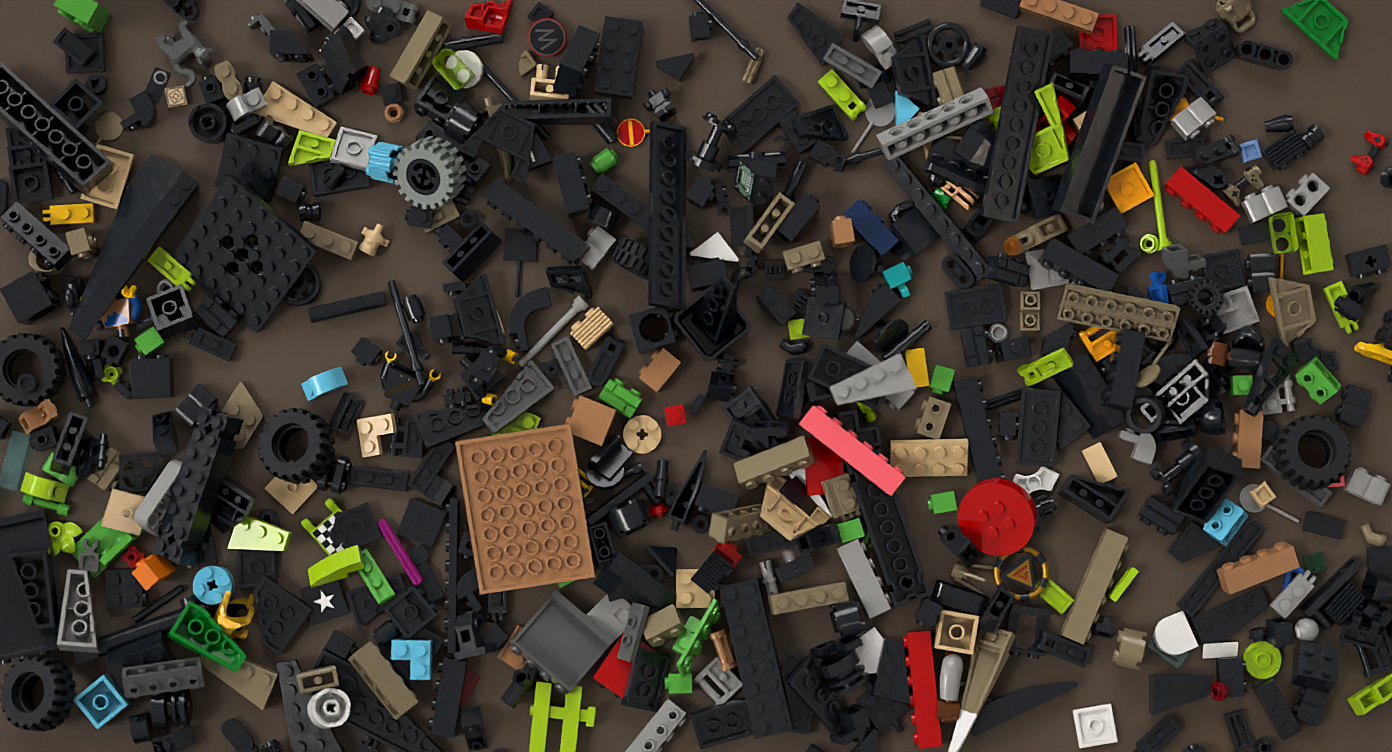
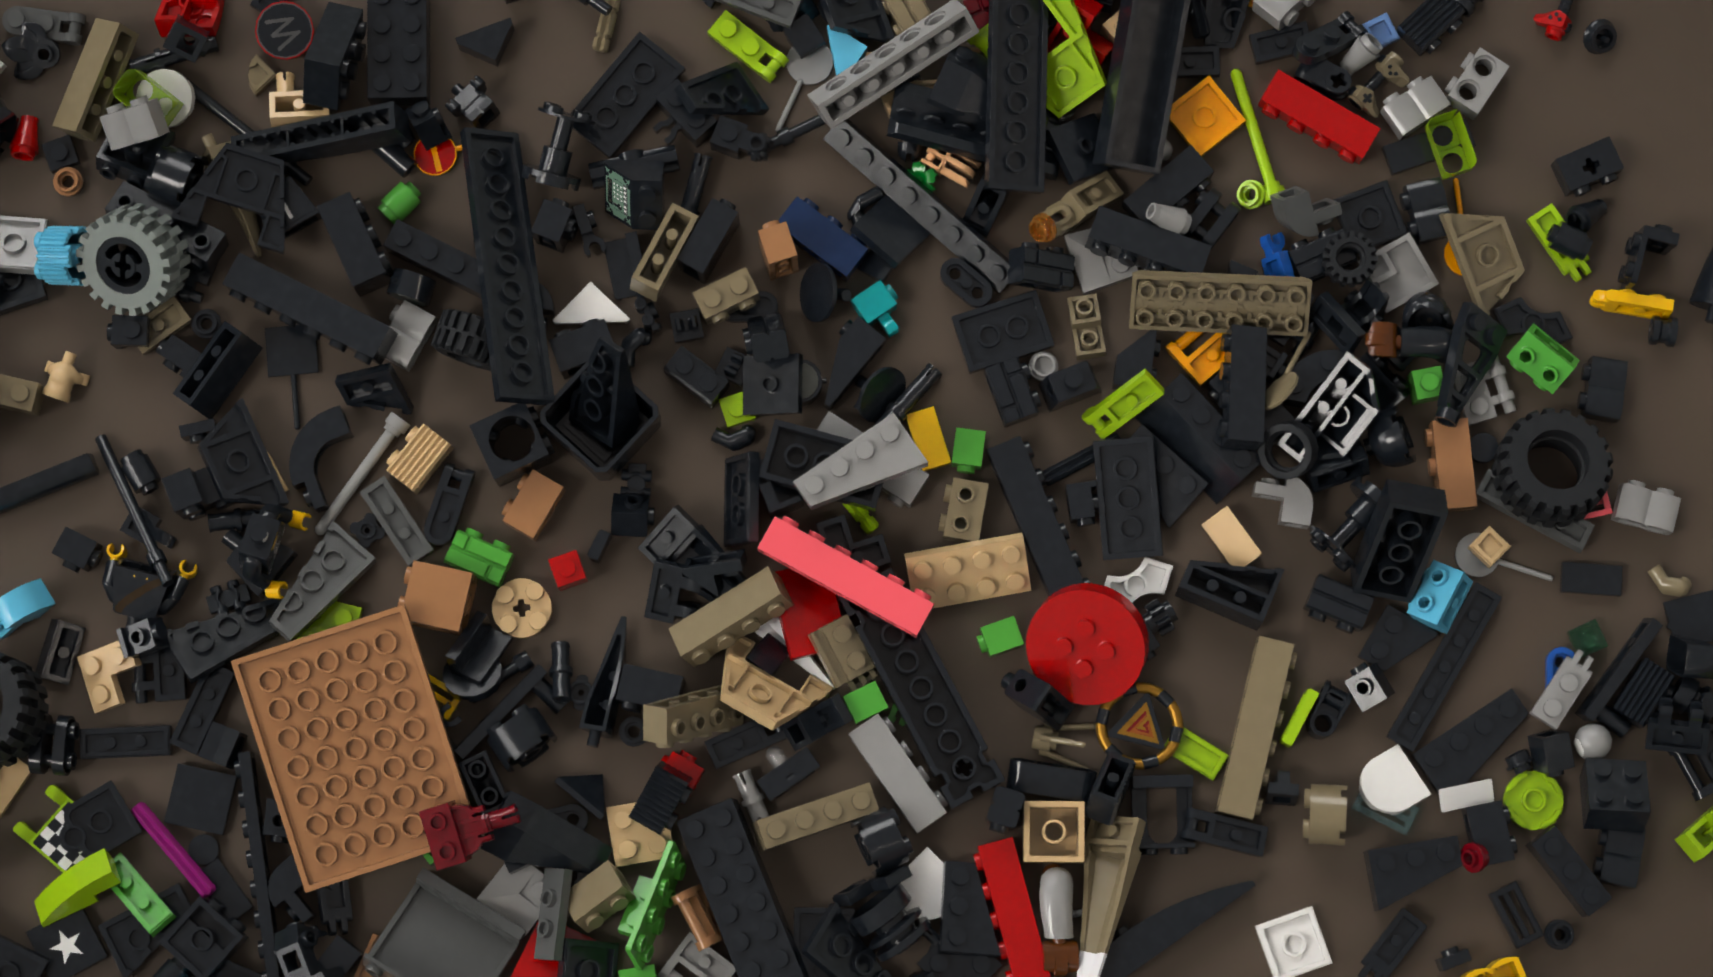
camera: 10 degrees left, 5 degrees down
(401, 416) = (143, 638): none -> black brick
(443, 85) = (133, 123): none -> light grey brick
(482, 40) = (179, 45): none -> black brick
(582, 573) = (456, 831): none -> dark red brick
(630, 114) = (428, 124): none -> black brick
(657, 510) = (563, 720): red plate -> none
(1095, 252) = (1169, 217): none -> light grey cone
(1143, 581) = (1330, 705): none -> black piece
(1170, 571) = (1368, 685): none -> brick
(1236, 163) = (1362, 52): none -> light grey cone
(1257, 568) = (1500, 658): medium nougat brick -> none
(1314, 244) = (1500, 154): lime brick -> none

